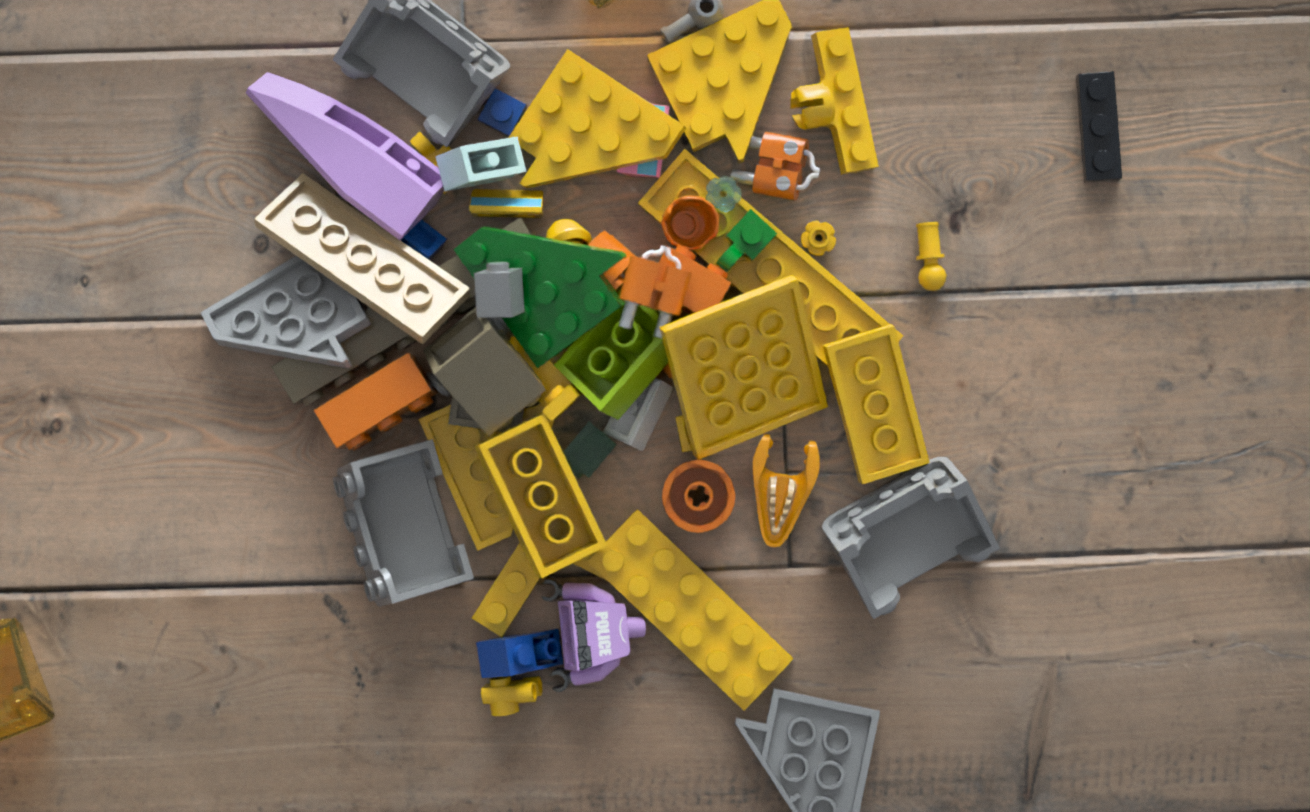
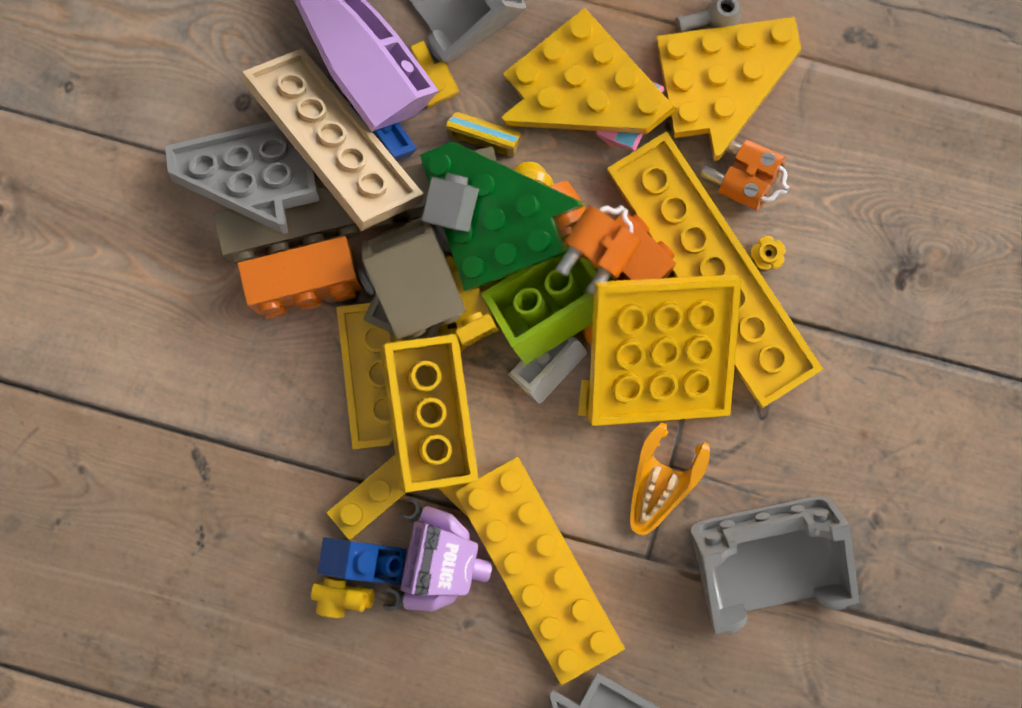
camera: 20 degrees right, 5 degrees down
(400, 524) = (287, 400): light grey windscreen -> none
(480, 163) = (470, 84): light aqua brick -> none
(502, 112) = (505, 48): blue plate -> none
(588, 451) = (489, 386): clear green brick -> none
(690, 222) = (653, 197): orange hair -> none
(708, 514) = (601, 458): orange brick -> none
(726, 184) = (693, 173): clear light blue plate -> none
(747, 239) = (701, 231): green plate -> none
(837, 102) = (823, 133): yellow plate -> none
(876, 404) = (779, 426): yellow plate -> none
(931, 275) = (867, 321): yellow pin -> none

